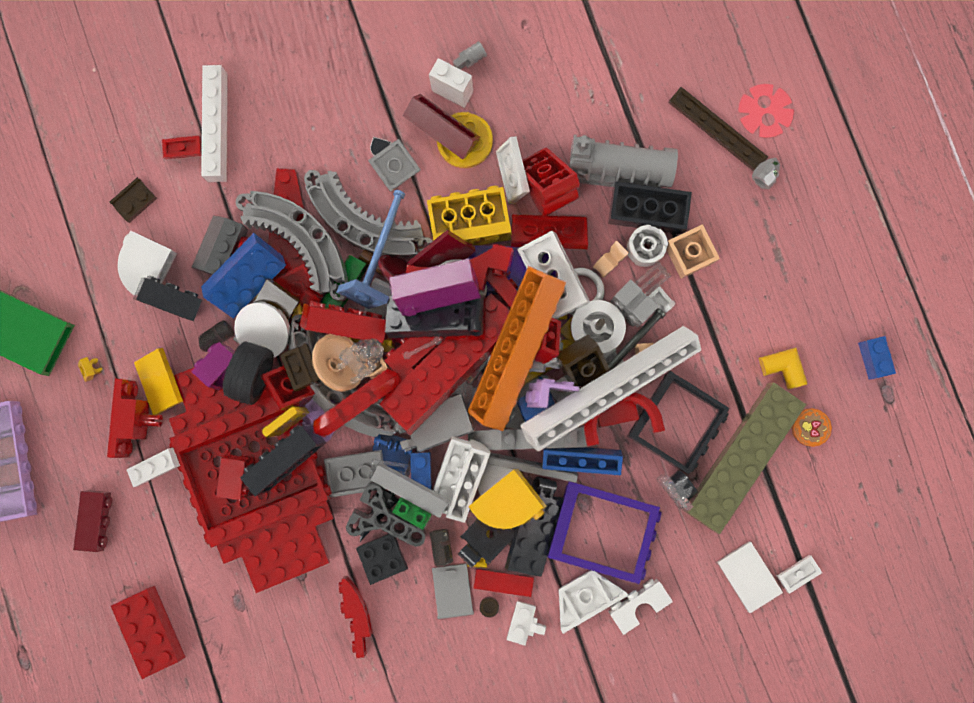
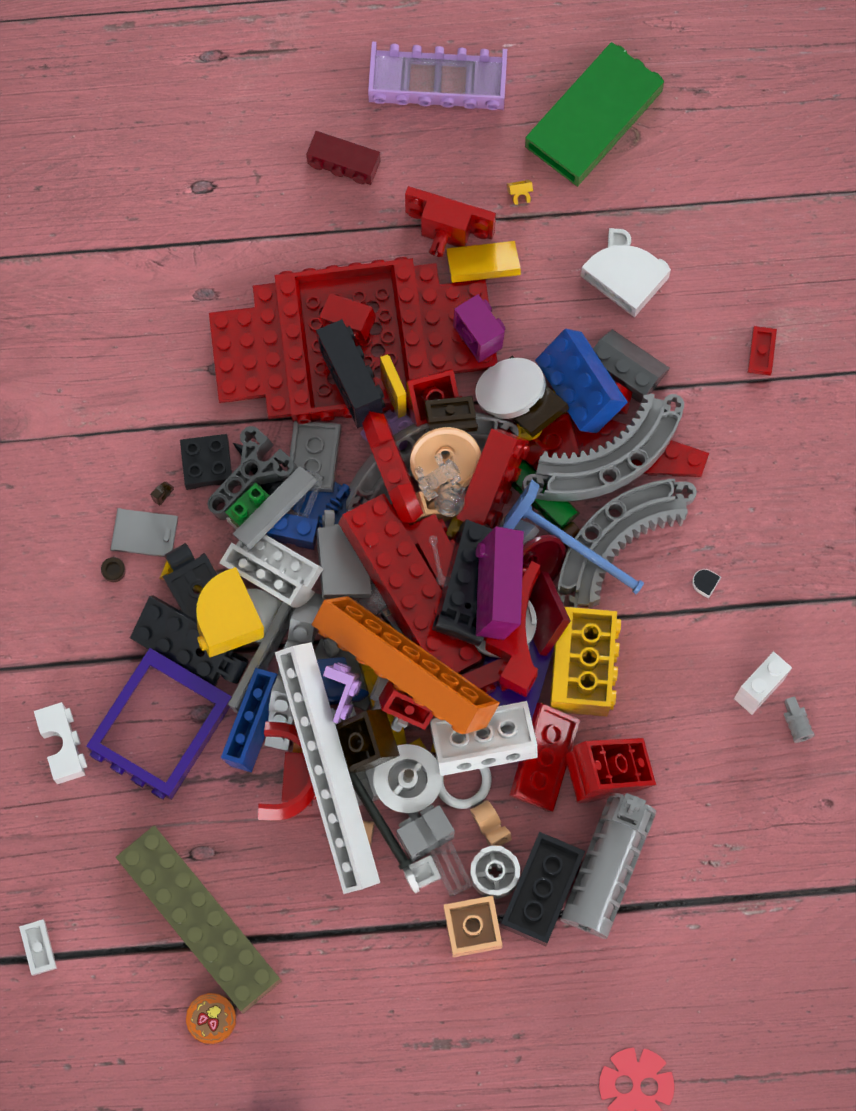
camera: 100 degrees right, 10 degrees down
(113, 281) = (618, 237): none -> white tile
(133, 200) = (711, 282): dark brown plate -> none
(148, 632) = (201, 189): red brick -> none
(153, 467) = (384, 234): white plate -> none
(168, 298) = (575, 291): black brick -> none
(214, 123) = (782, 393): white brick -> none
(217, 333) = (520, 336): clear smoke arm -> none
(244, 372) = (464, 353): black tyre -> none
(355, 607) = (159, 417): red slope -> none
(394, 165) = (678, 592): light grey tile -> none
(416, 586) = (161, 493): none -> dark brown tile
(441, 126) = (712, 659): brick -> none
(441, 547) = (198, 531): clear smoke arm -> none
(482, 148) = (690, 687): yellow tile -> none
(503, 582) = (136, 593): red tile -> none
(512, 170) = (633, 730): white tile -> none
(524, 624) = (81, 604): white hinge -> none
(585, 598) = (88, 683): white wing -> none
(678, 488) = (183, 824): clear piece -> none
(710, 433) = (225, 871): black window -> none
(717, 129) = (626, 1013): dark brown tile -> none
(749, 577) = (53, 886): white tile -> none
(766, 173) = (551, 1057): light grey rock -> none
(787, 362) = (299, 1014): yellow brick -> none

